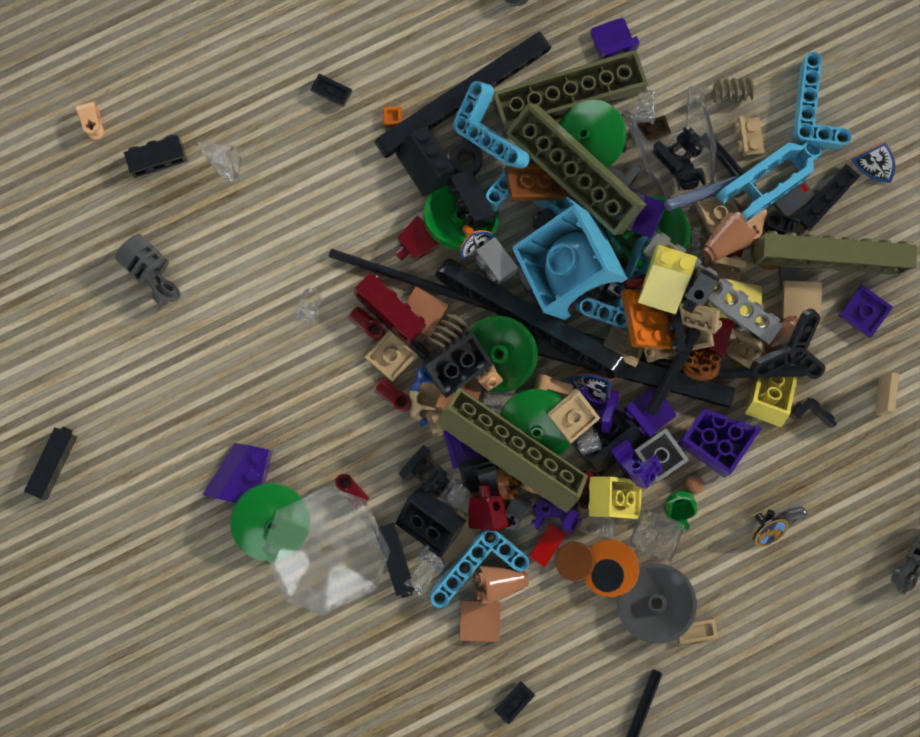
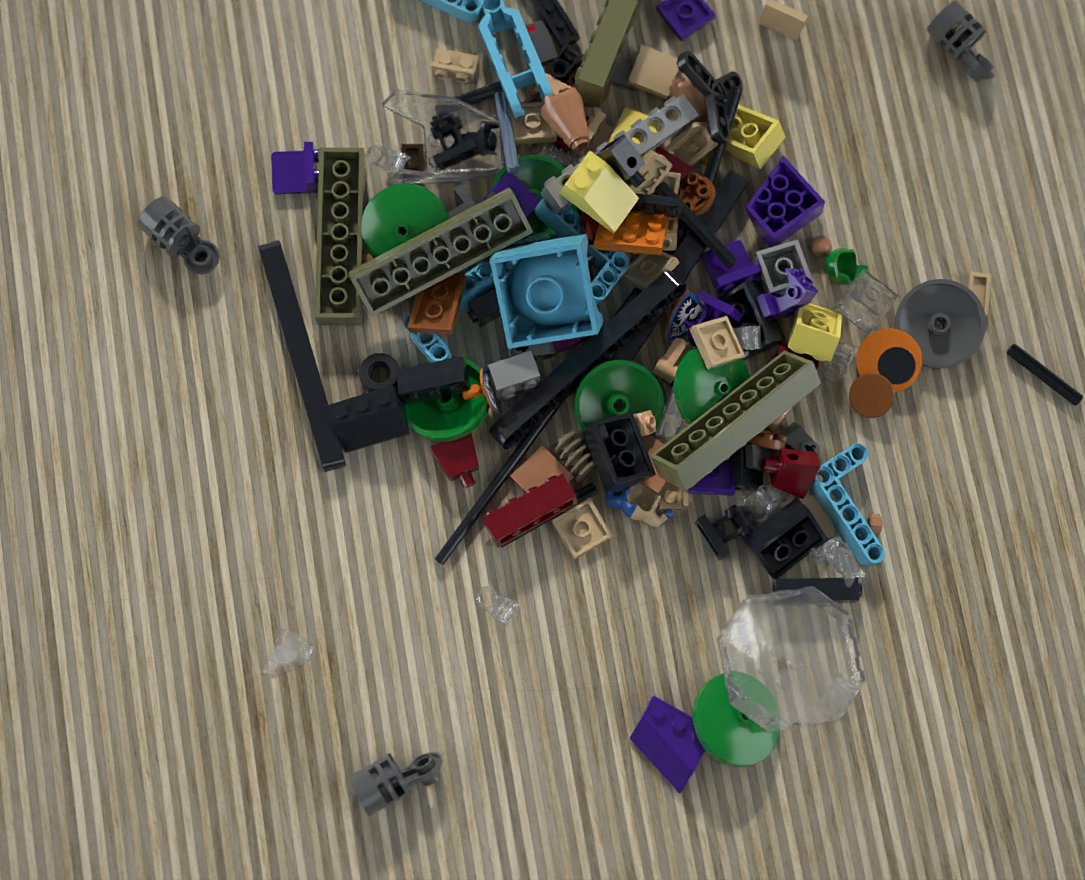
camera: 80 degrees left, 5 degrees down
(90, 120) = (177, 802): light nougat piece -> none
(155, 156) = (253, 734): black brick -> none
(331, 90) = (244, 502): black plate -> none
(353, 487) = (721, 615): dark red piece -> none
(366, 322) = (534, 544): dark red piece -> none
(392, 116) = (299, 442): orange tile -> none
(392, 395) = (628, 539): dark red piece -> none
(465, 593) = (875, 523): none -> nougat tile
(469, 126) = (362, 340): medium azure beam -> none
(479, 621) = (908, 519): nougat tile -> none
(497, 583) = (873, 486): nougat cone -> none
(514, 702) = (1006, 508): black plate -> none
(547, 545) = (844, 421): red tile -> none
(569, 519) = (828, 387): dark purple tile -> none
(732, 87) = (396, 63): dark tan piece -> none
(770, 530) = (893, 183): shield -> none
(795, 513) = (880, 156): dark grey arm -> none
(813, 405) = (769, 105): black bracket -> none

